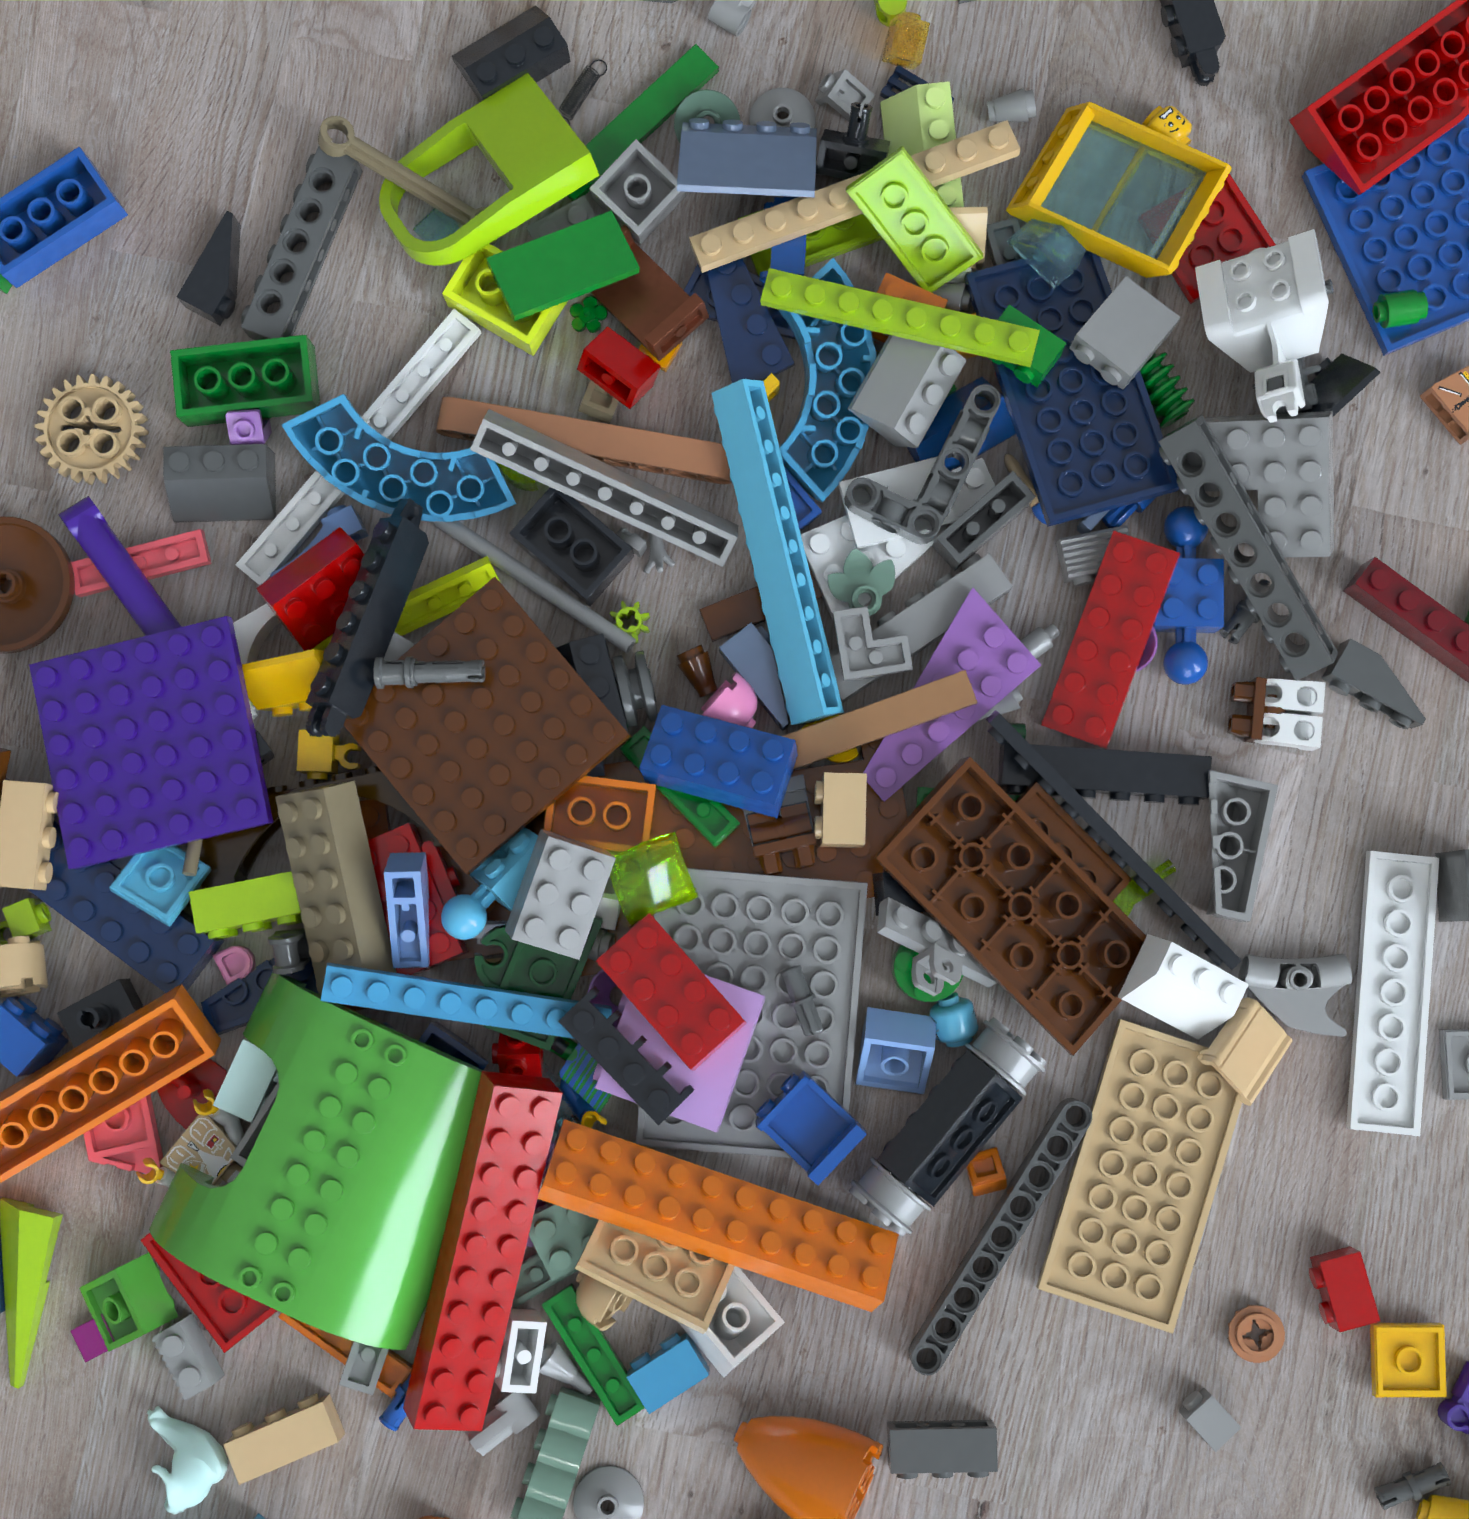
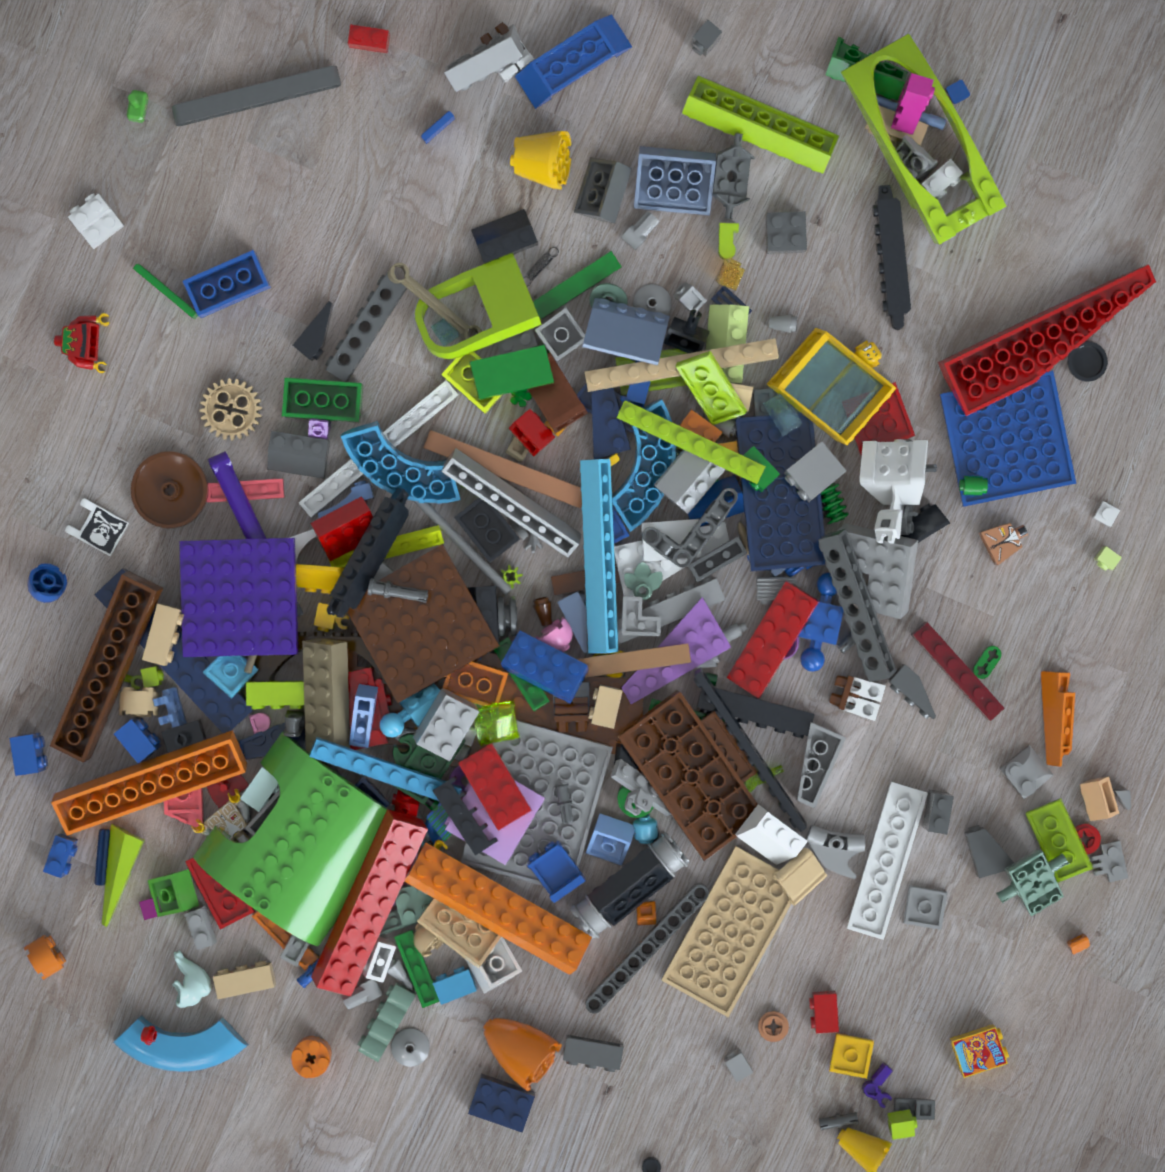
camera: 15 degrees right, 5 degrees up
(75, 964) = (174, 707): none -> medium blue plate

